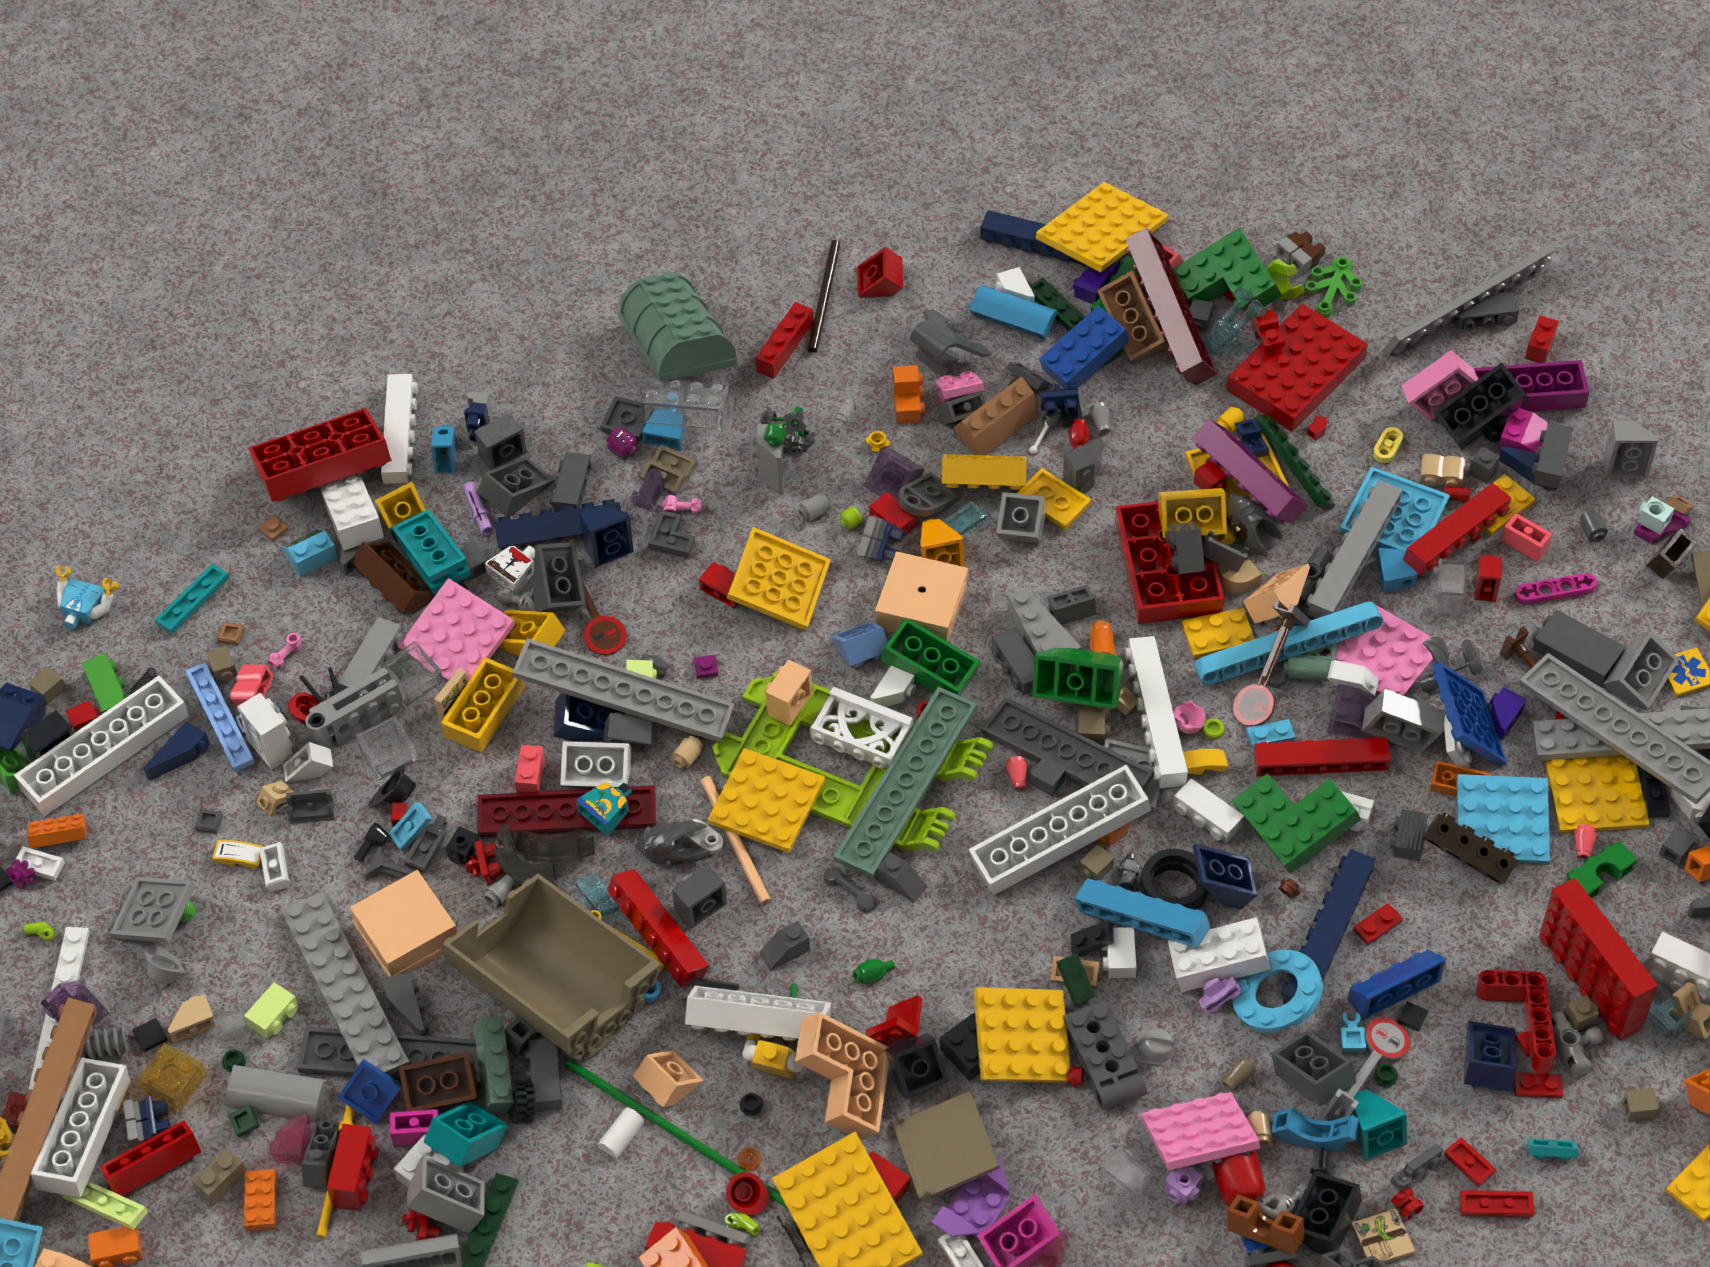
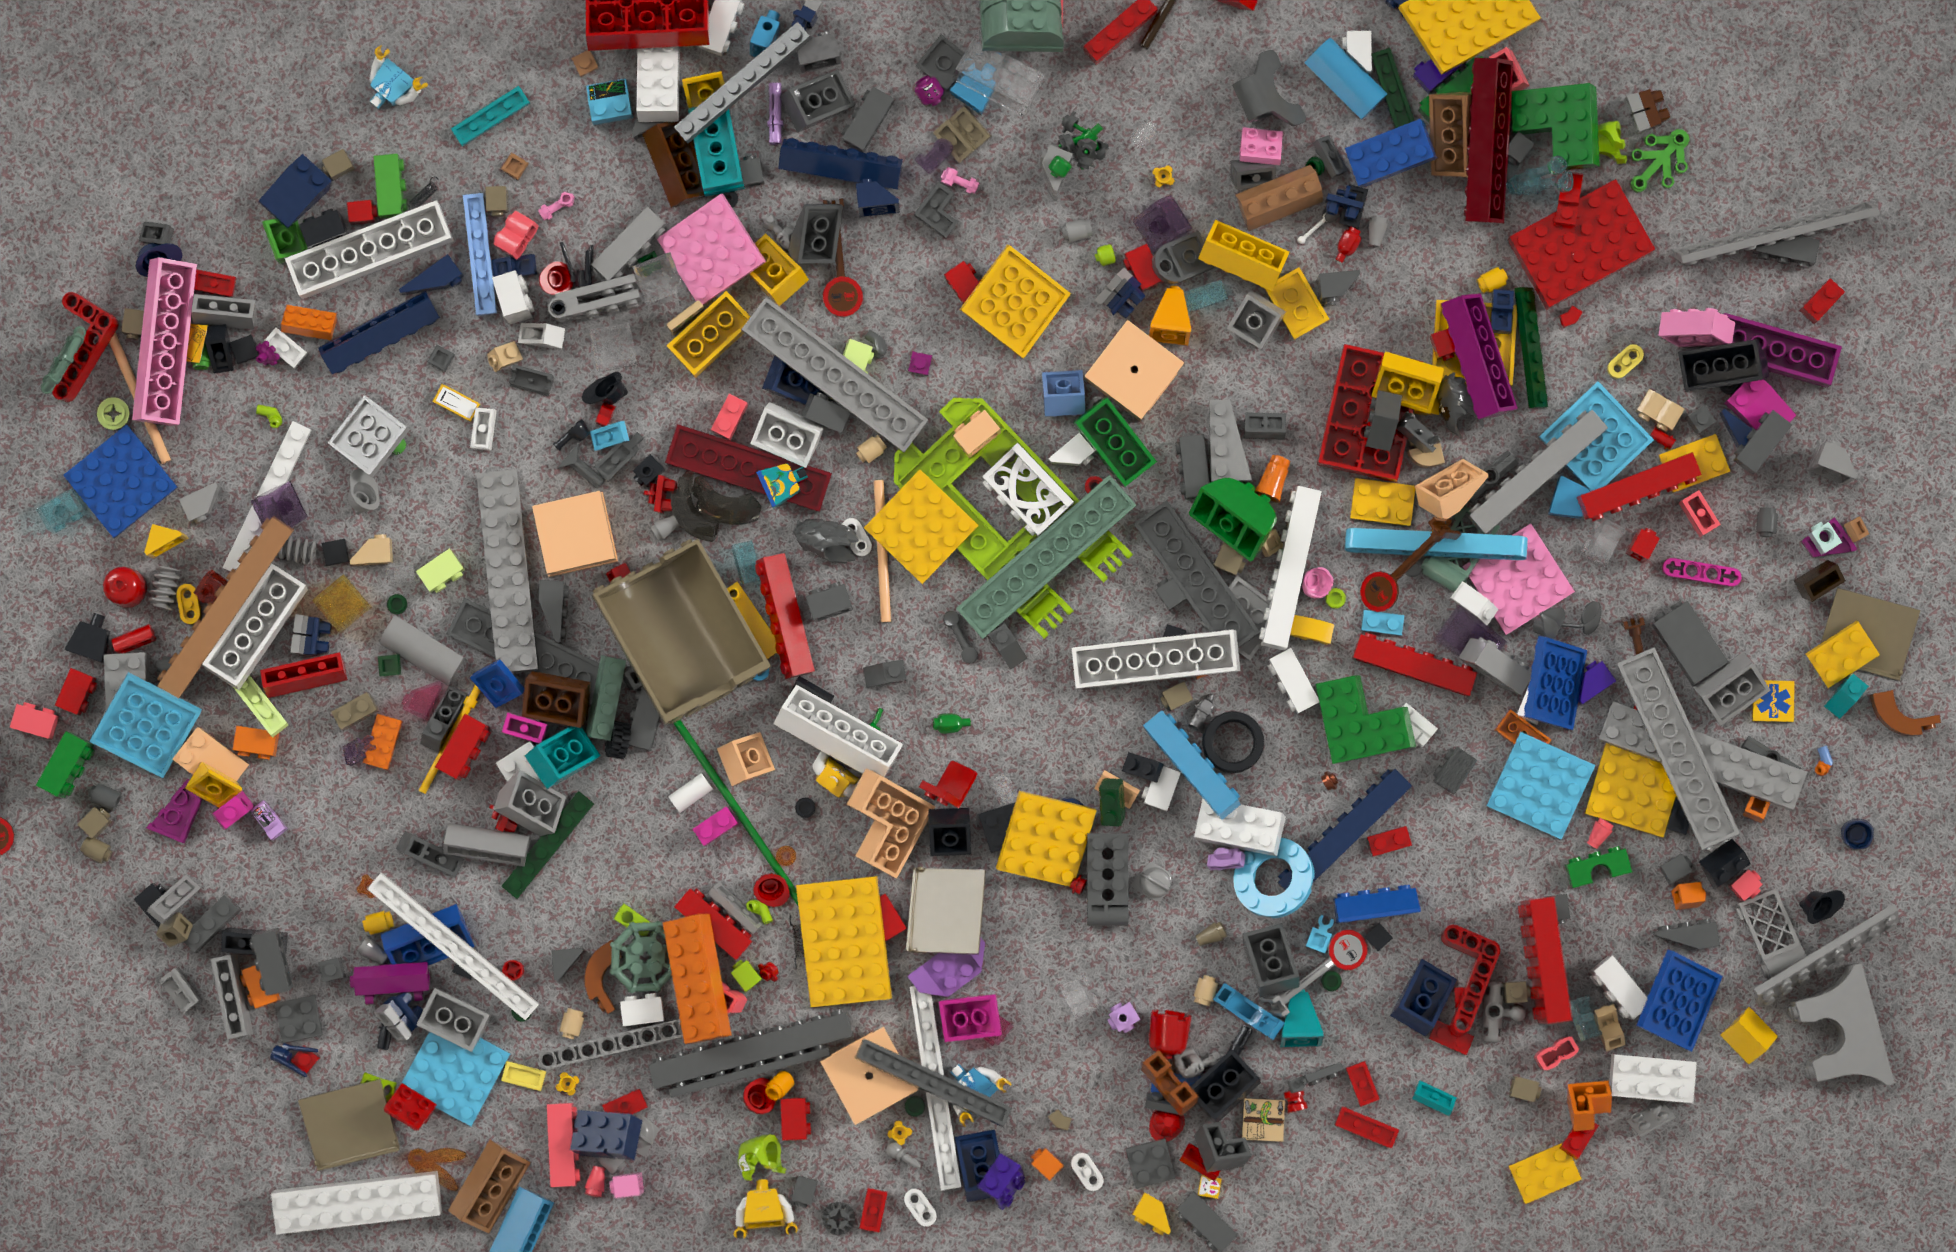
camera: 20 degrees right, 30 degrees up
(134, 815) = (378, 333): none -> dark blue brick
(233, 1214) = (356, 749): none -> plate
(435, 480) = (742, 82): none -> plate
(512, 567) = (785, 193): white torso -> none
(660, 1153) = (715, 826): none -> dark pink brick
(907, 393) = (1209, 136): orange brick -> none
(1017, 772) = (1147, 578): coral cone -> none
(1200, 1131) = (1154, 980): bright pink plate -> none
(1225, 875) = (1276, 756): dark blue slope -> none
(1470, 849) = (1495, 808): dark brown brick -> none
(1655, 1055) = (1560, 1050): none -> coral brick

